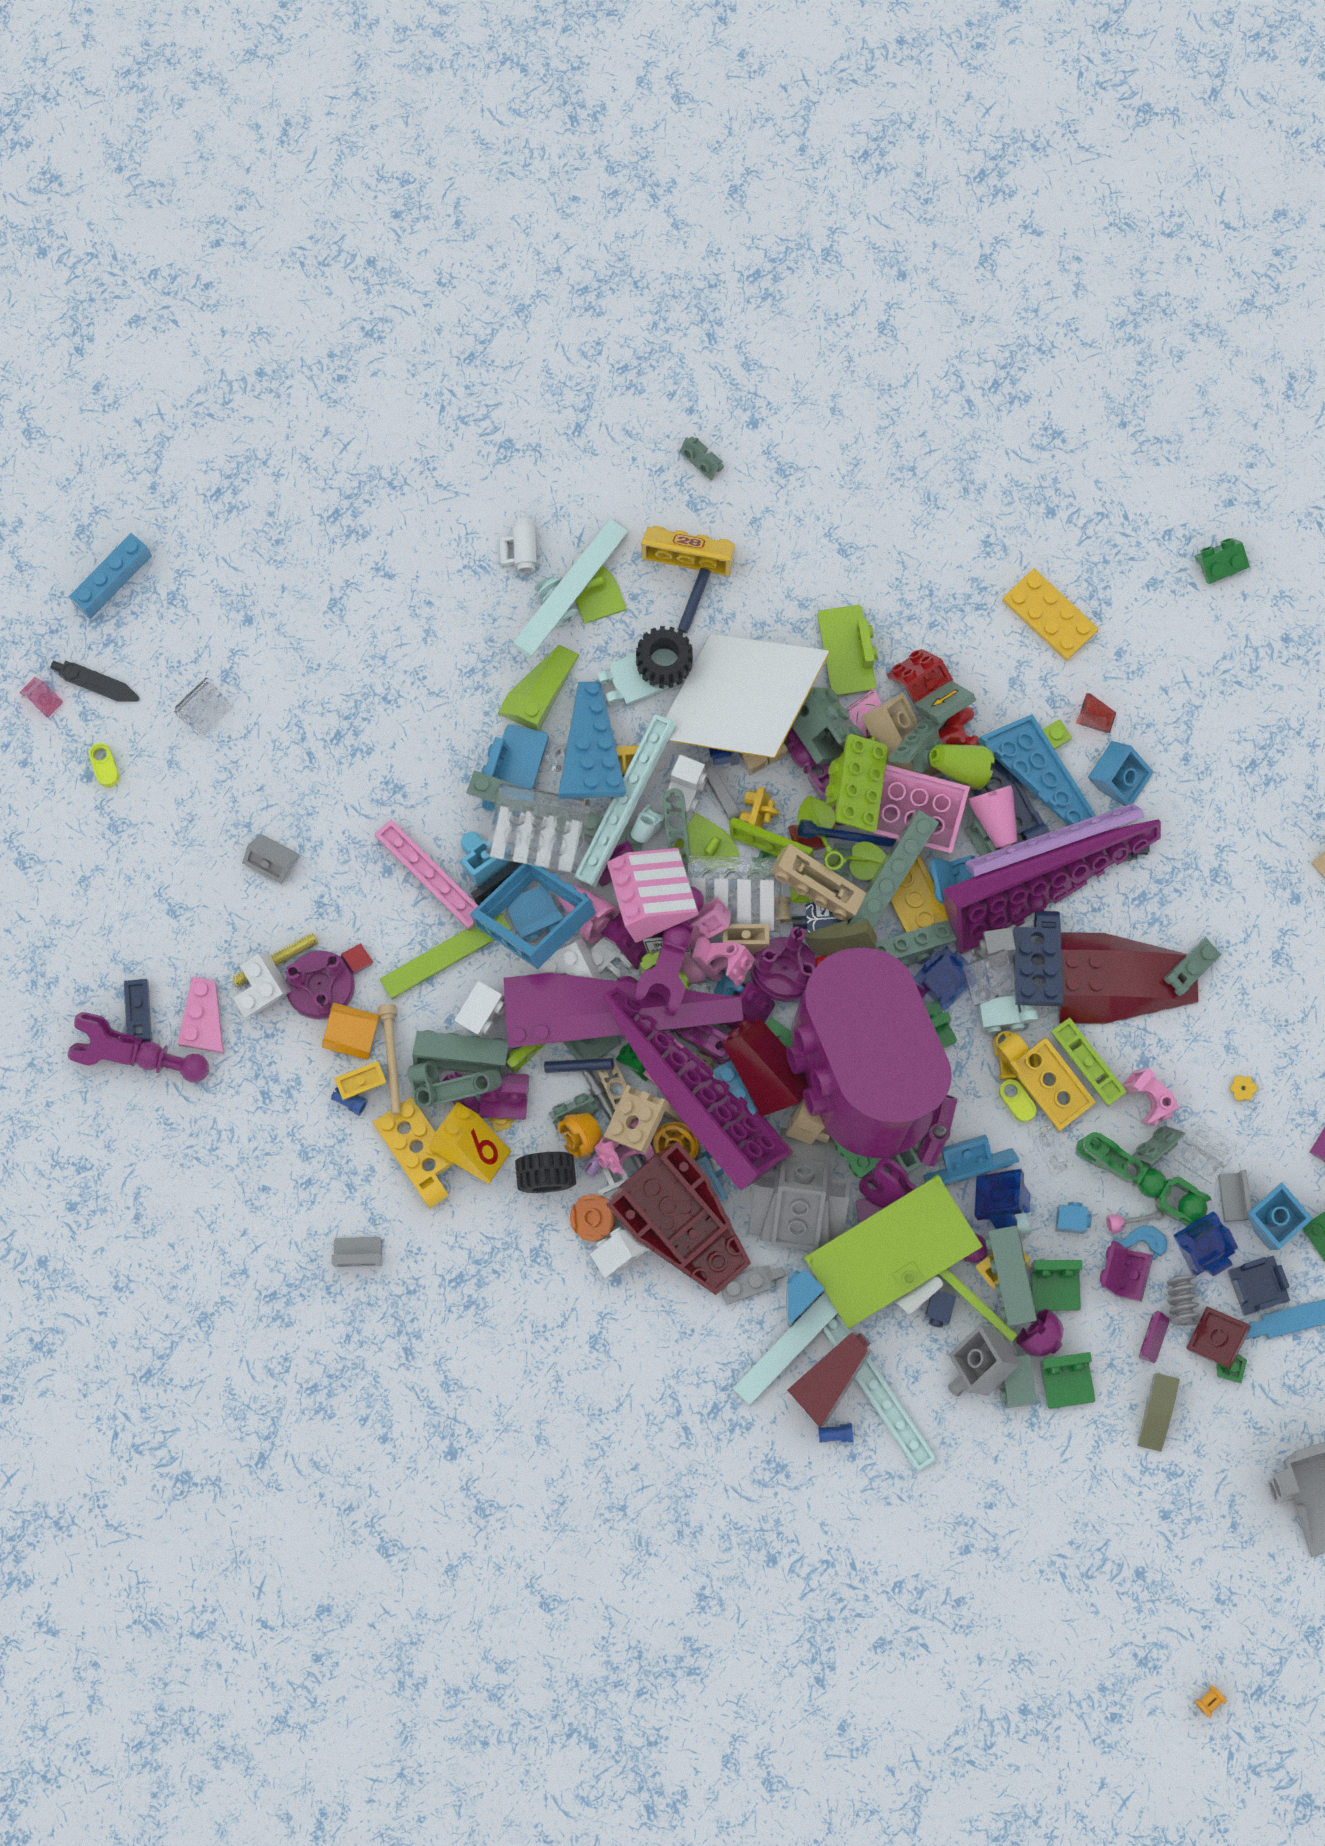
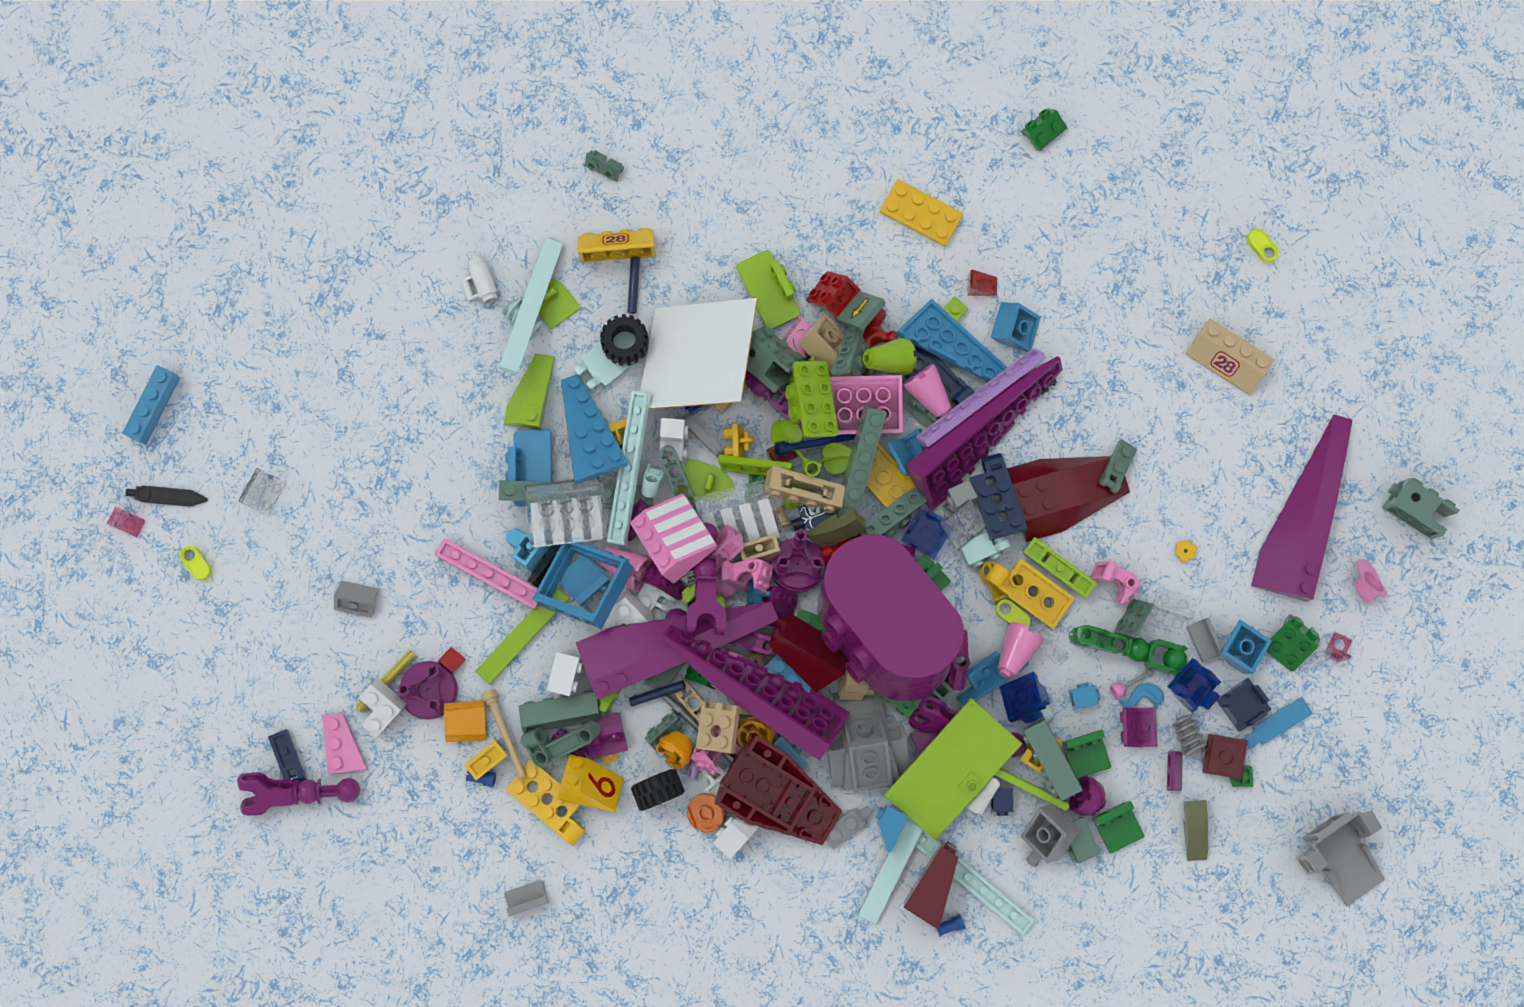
camera: 20 degrees left, 5 degrees up
(1011, 1138) = (1017, 649): none -> bright pink cone

